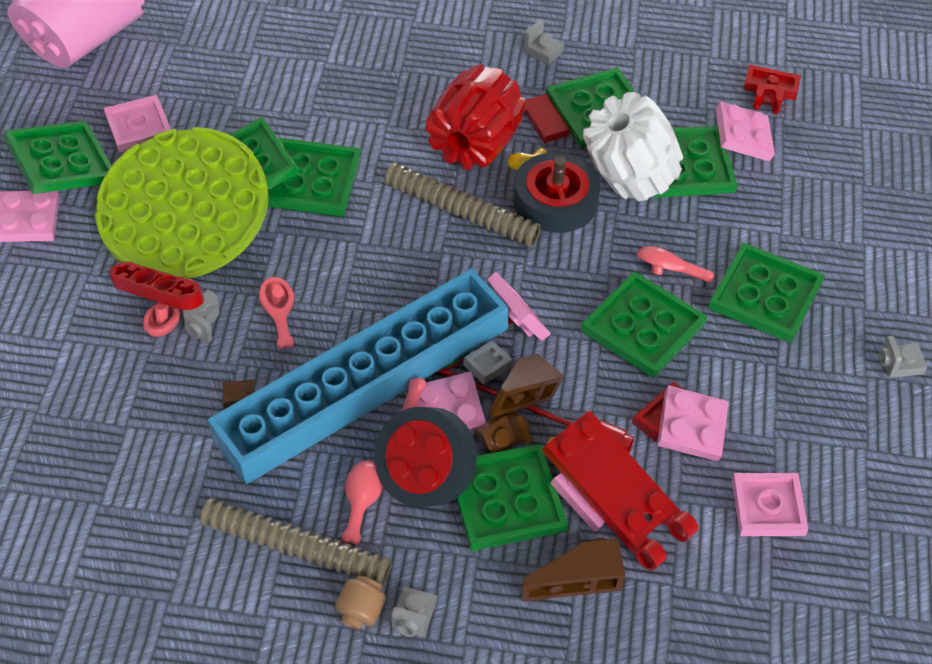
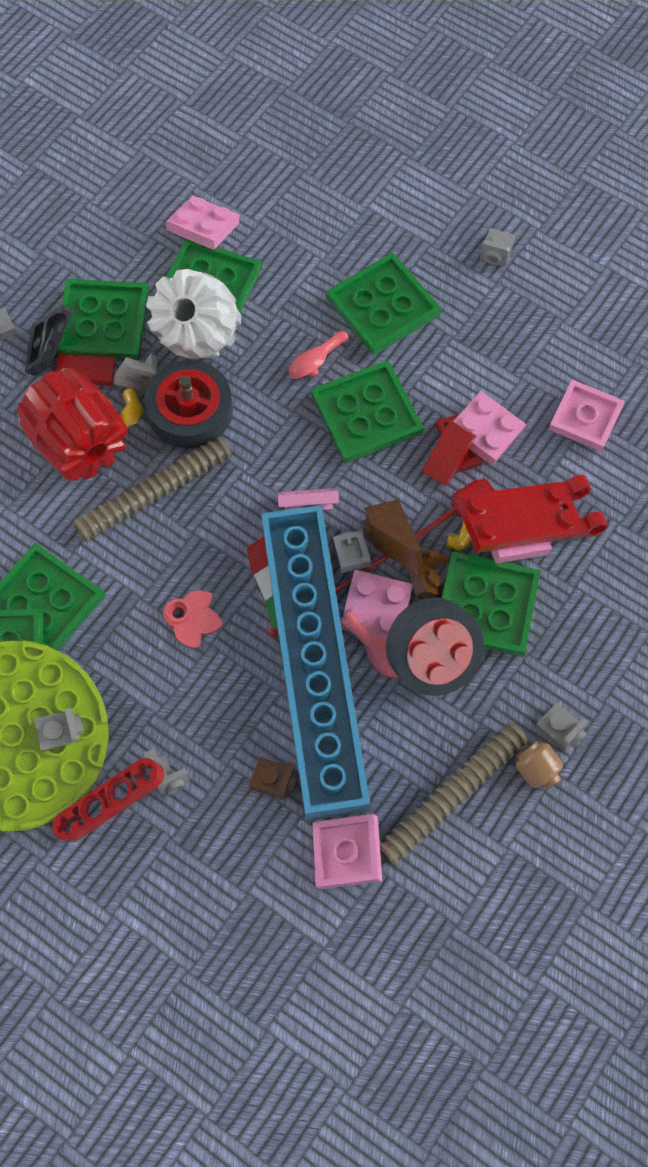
camera: 60 degrees left, 15 degrees up
(161, 319) = (145, 813): coral piece -> none
(194, 476) = (347, 851): none -> bright pink plate
(198, 224) = (58, 729): none -> light grey bracket
(277, 300) = (180, 698): coral piece -> none
(358, 281) = (197, 618): none -> coral plate
(362, 490) = (426, 715): coral piece -> none
(535, 83) = (45, 339): none -> black wing
(558, 141) = (136, 374): none -> light grey bracket
(584, 570) = (584, 581): reddish brown slope -> none
(641, 399) = (449, 453): none -> red tile
(771, 86) = (161, 173): red plate -> none

